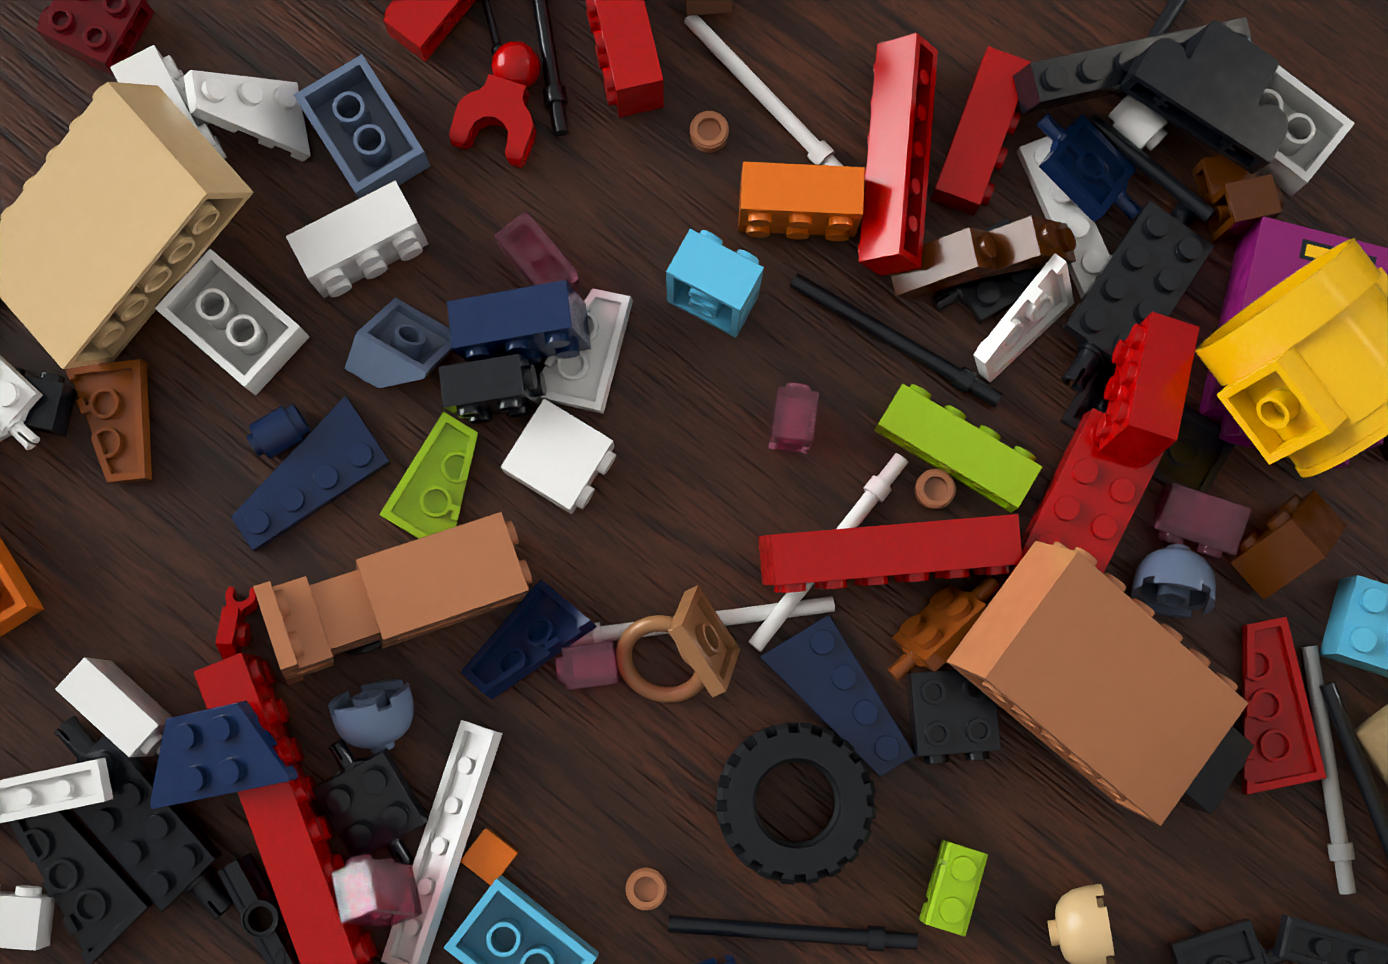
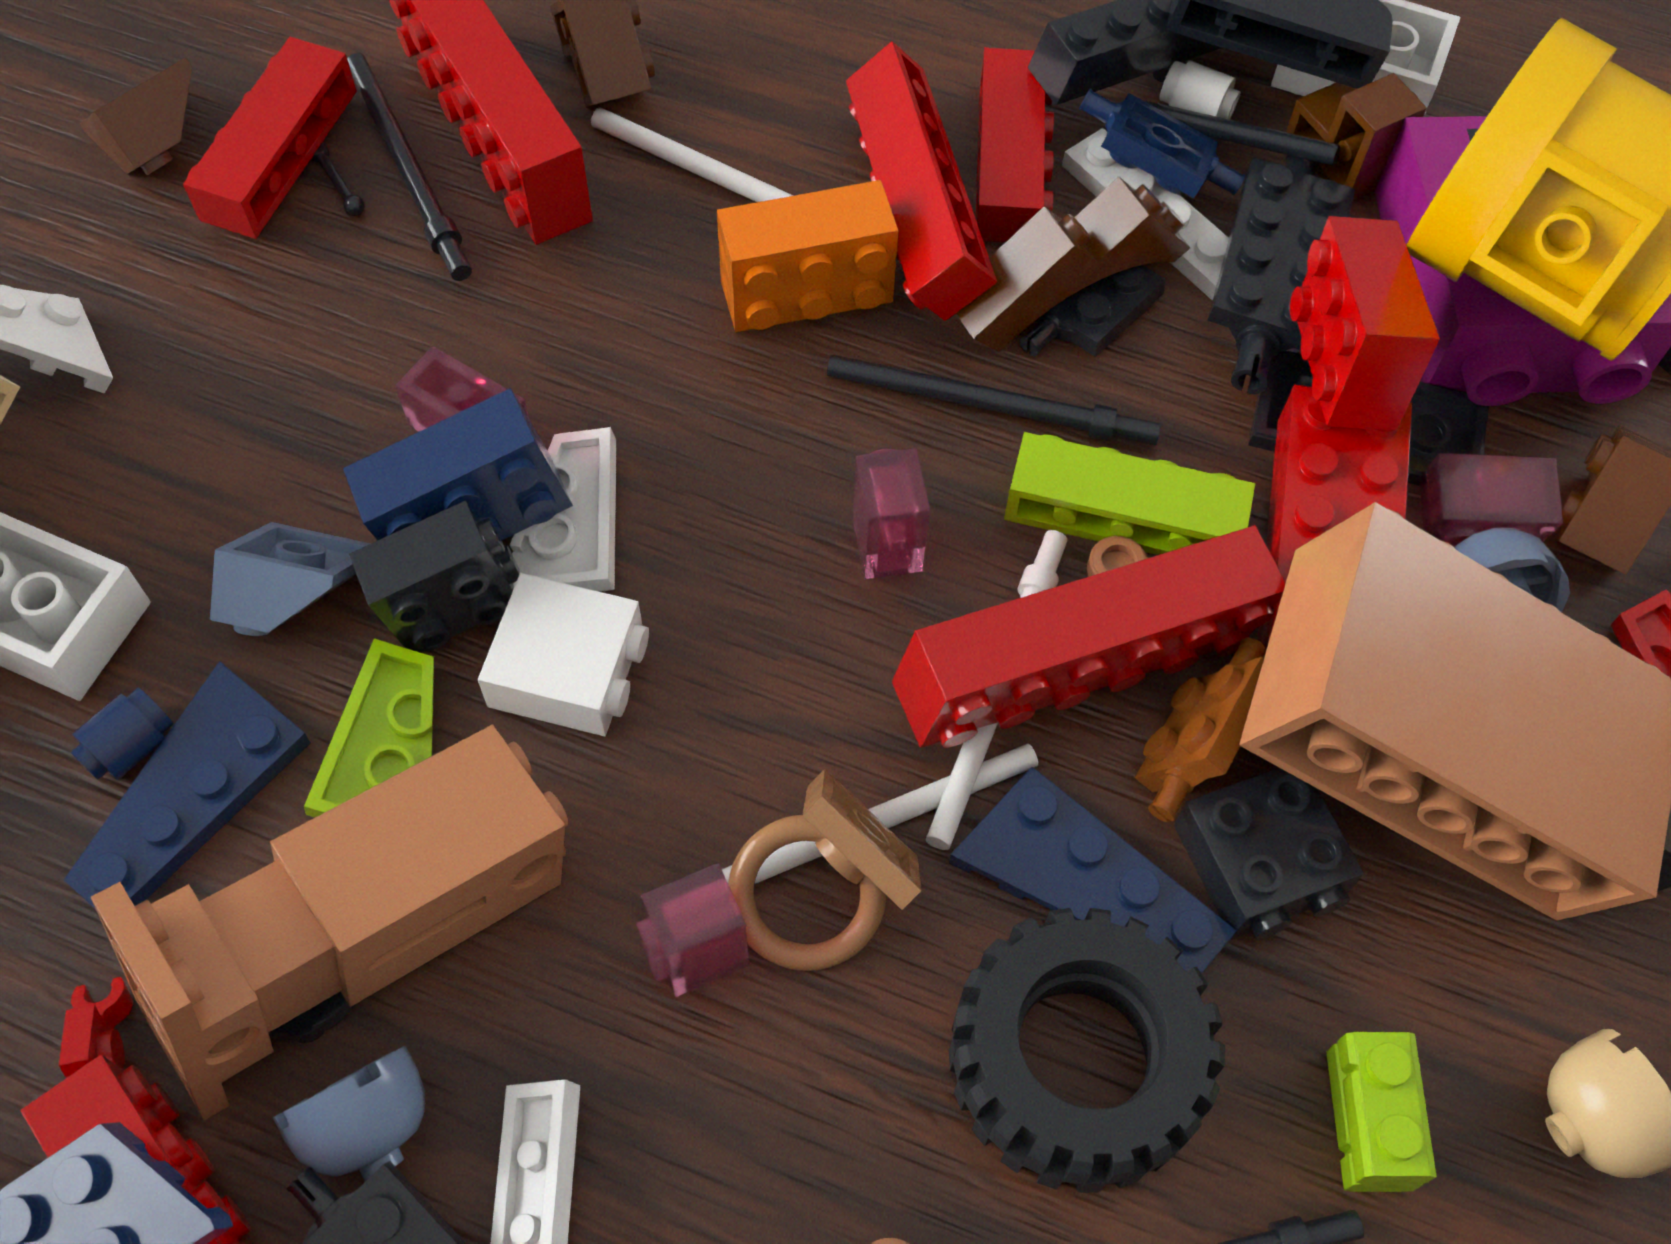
camera: 15 degrees left, 20 degrees down
(358, 241) = (197, 445): white brick -> none
(362, 128) = (181, 321): sand blue brick -> none
(502, 103) = (369, 255): red piece -> none
(526, 640) = (581, 929): dark blue wing -> none
(709, 131) = (660, 229): nougat tile -> none
(713, 281) = (722, 363): medium azure brick -> none
(1027, 319) = (1158, 321): white wing -> none

